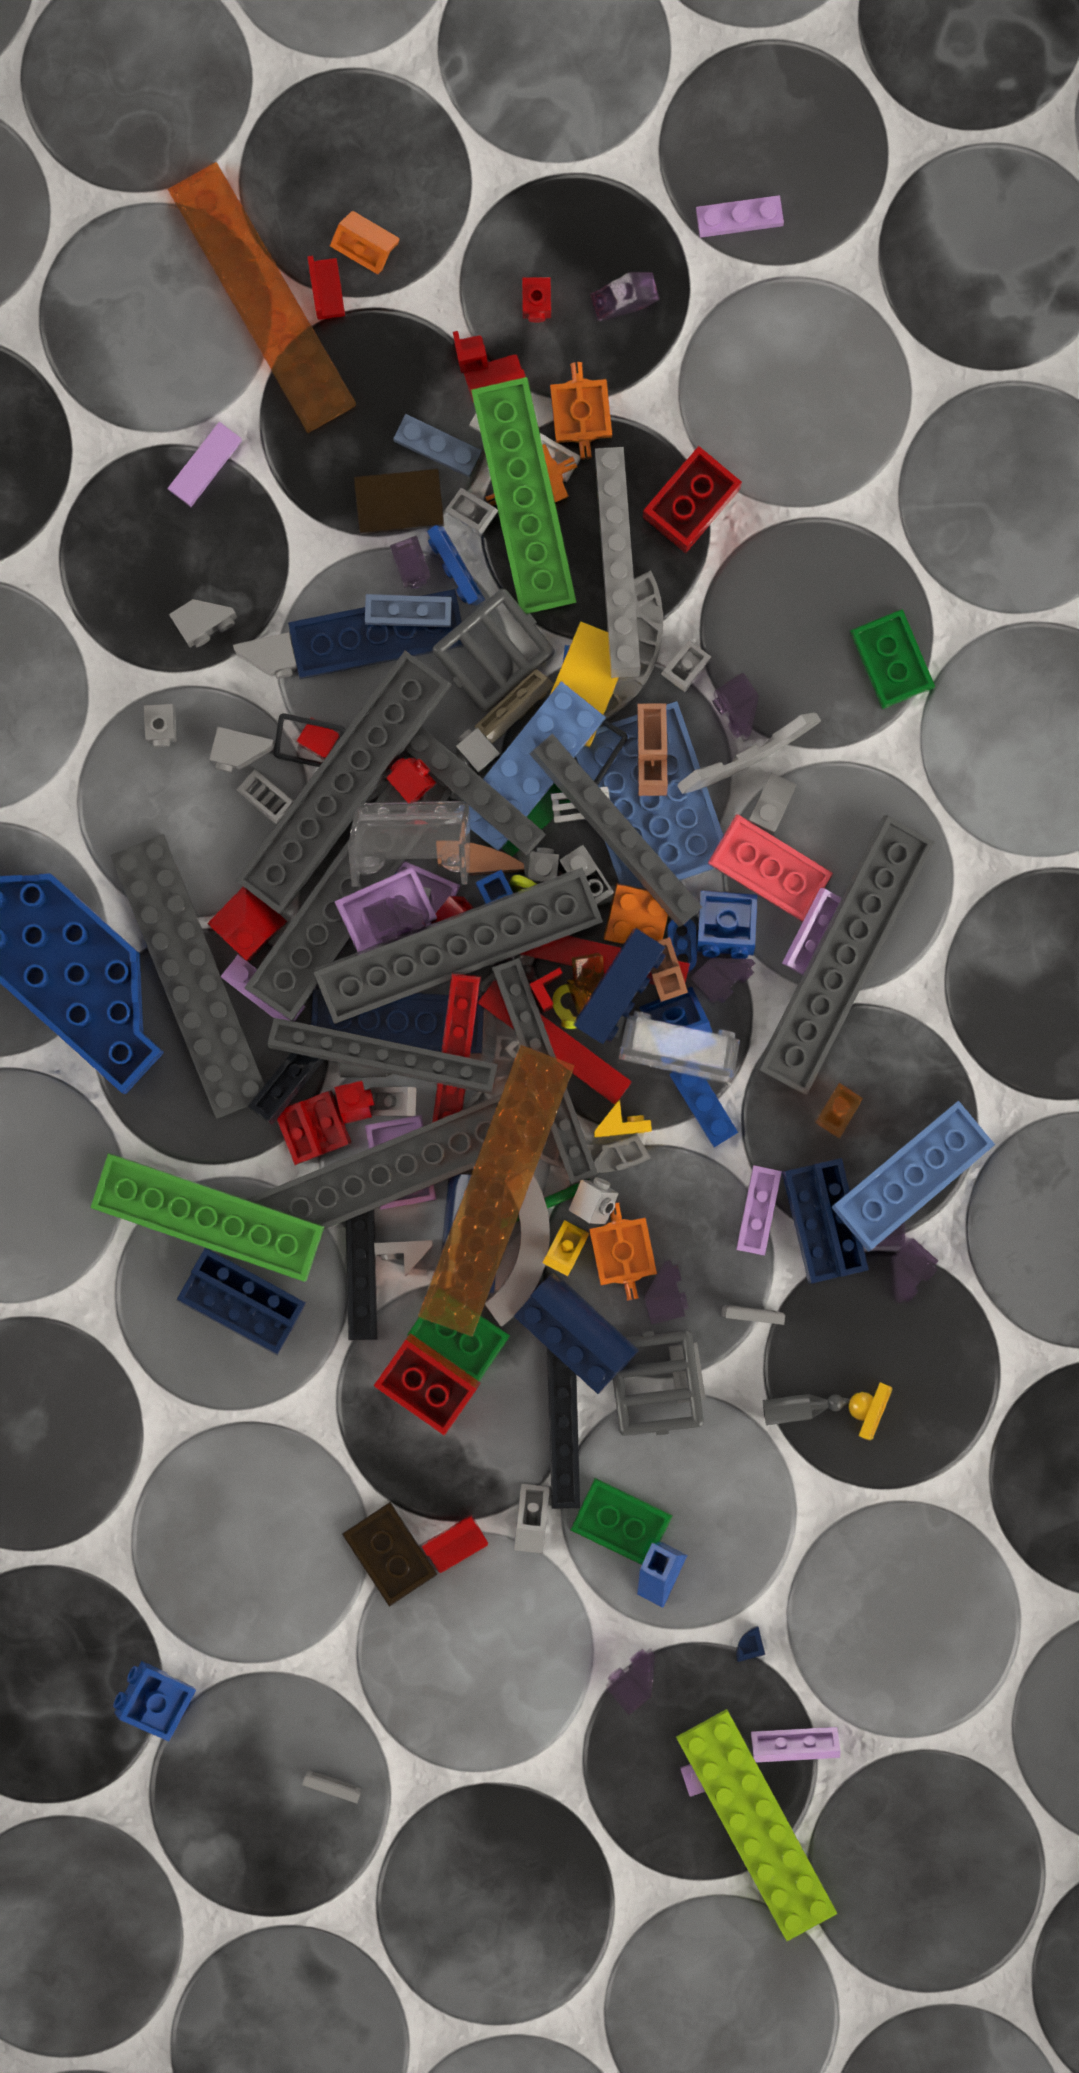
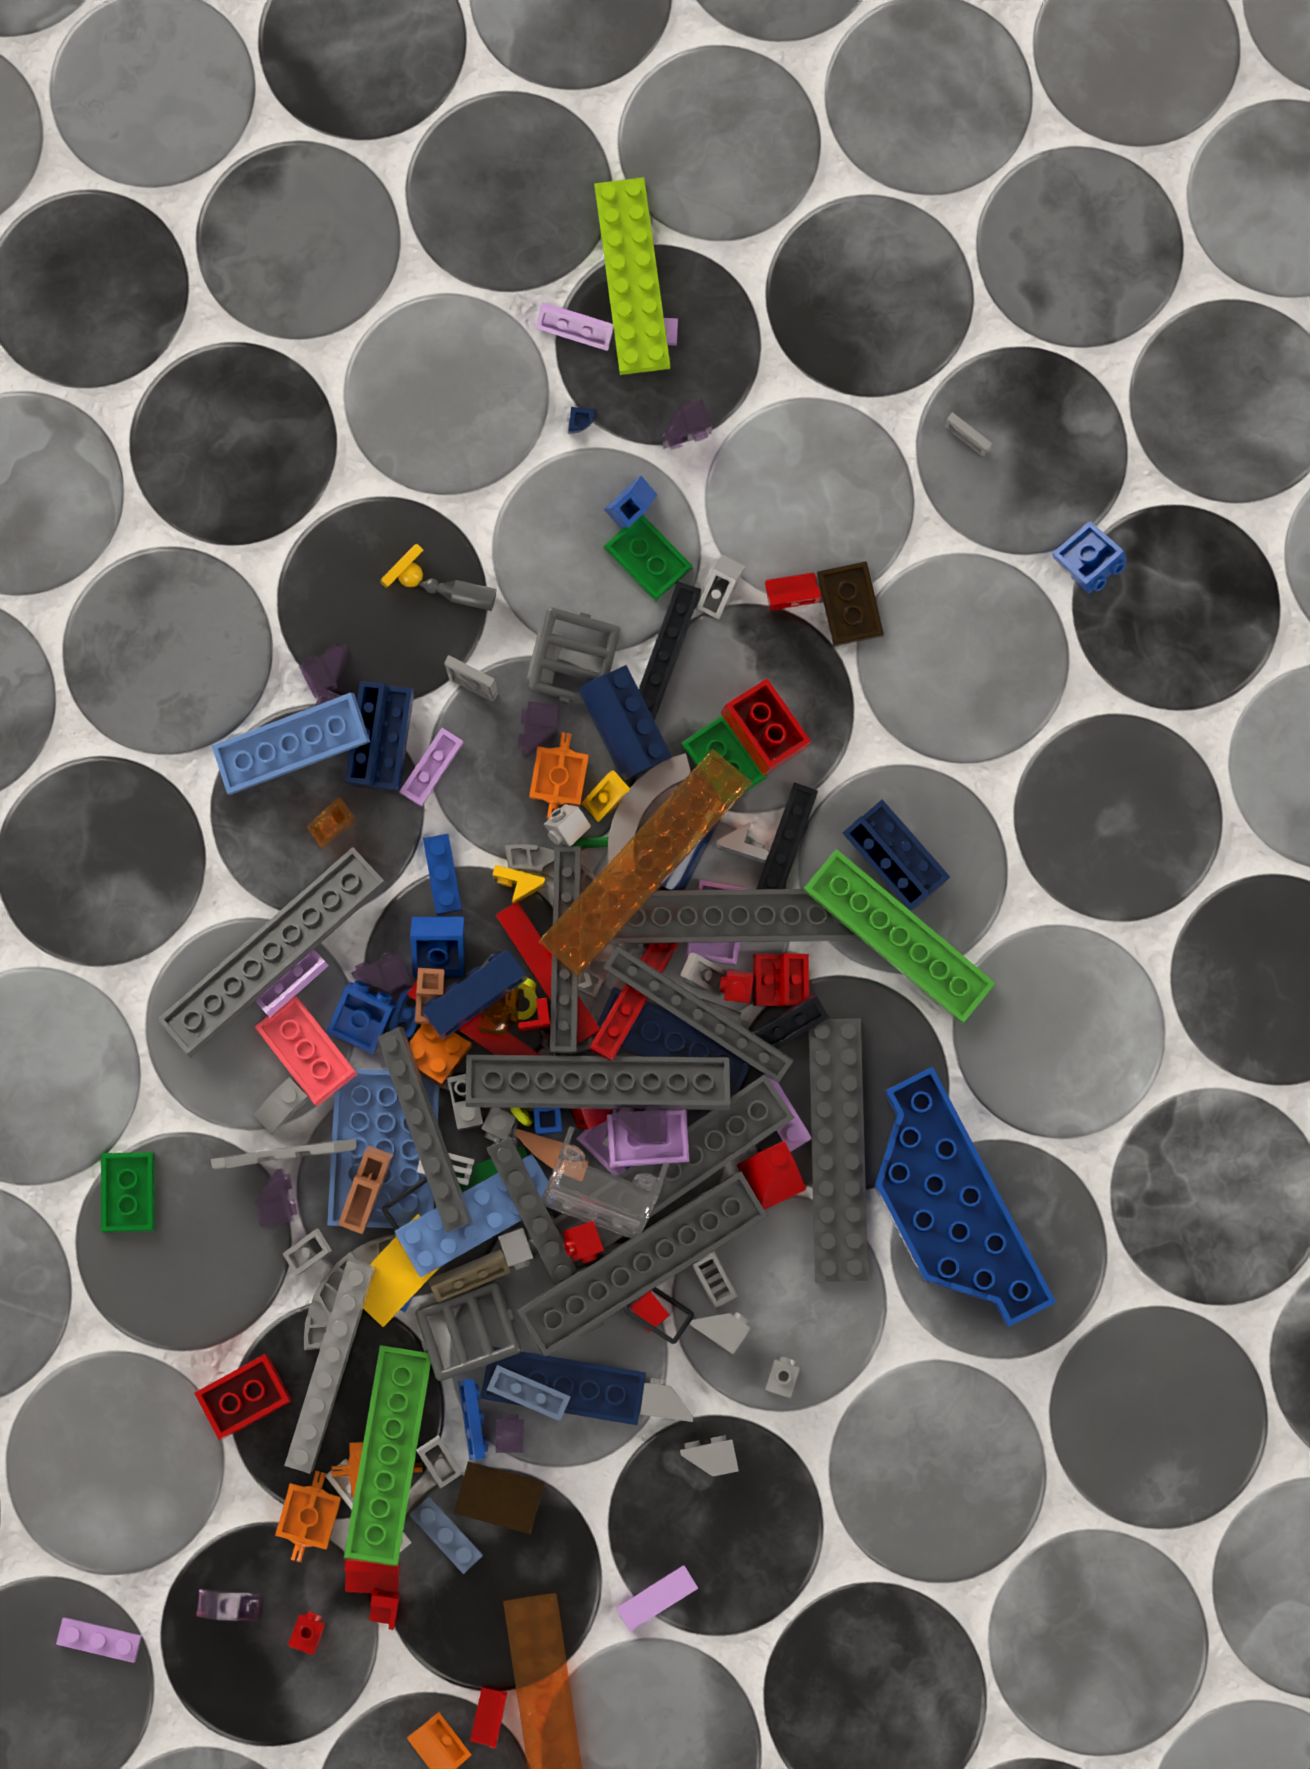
camera: 155 degrees left, 5 degrees down
(679, 1048) = (446, 921): clear windscreen -> none

